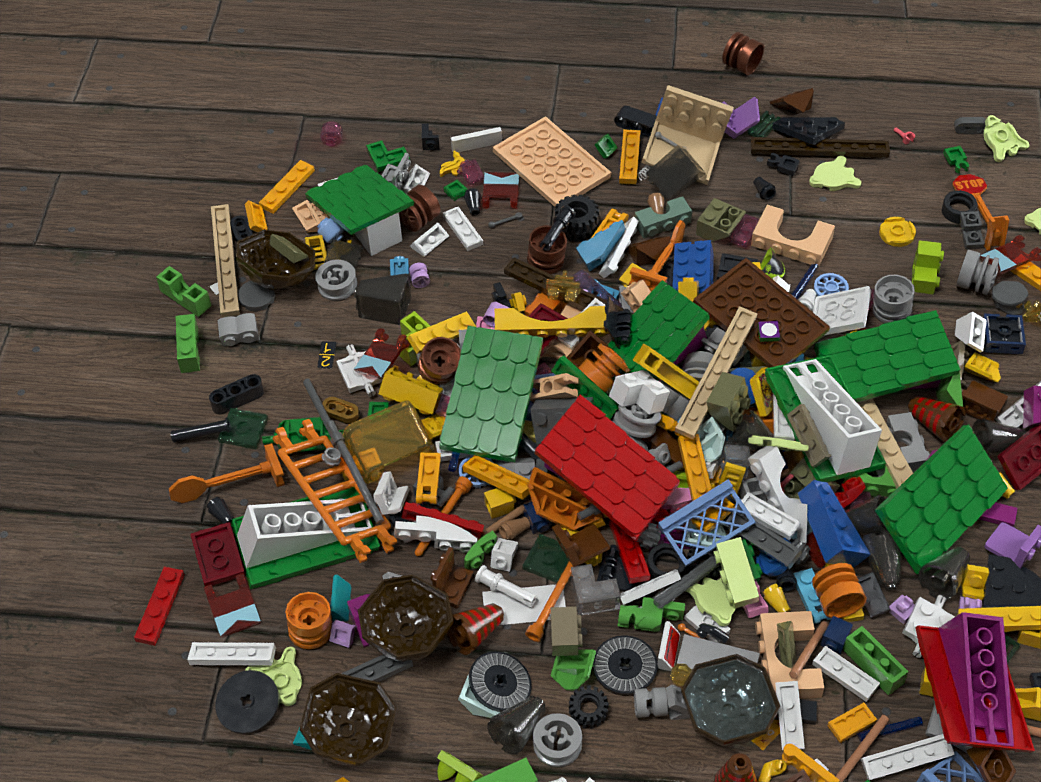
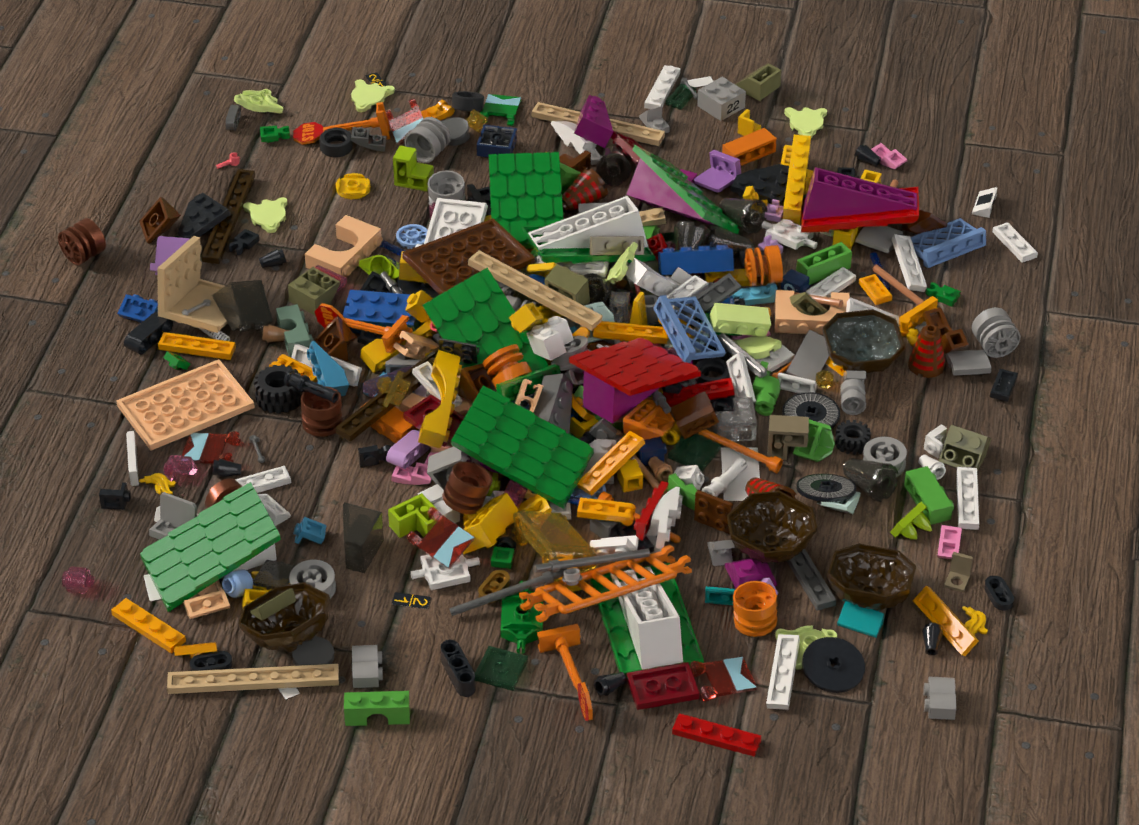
camera: 85 degrees left, 10 degrees down
(192, 298) = (314, 701): bright green arch -> none
(201, 430) = (503, 696): black pin -> none
(382, 157) = (134, 538): green plate -> none
(419, 275) = (328, 514): lavender wheel -> none
(447, 329) = (424, 488): yellow plate -> none
(455, 190) = (199, 484): green tile -> none
(518, 301) = (387, 436): yellow plate -> none
(714, 631) = (785, 354): black arm -> none
(768, 331) = (495, 251): tile -> none
(971, 330) = (483, 157): white slope -> none

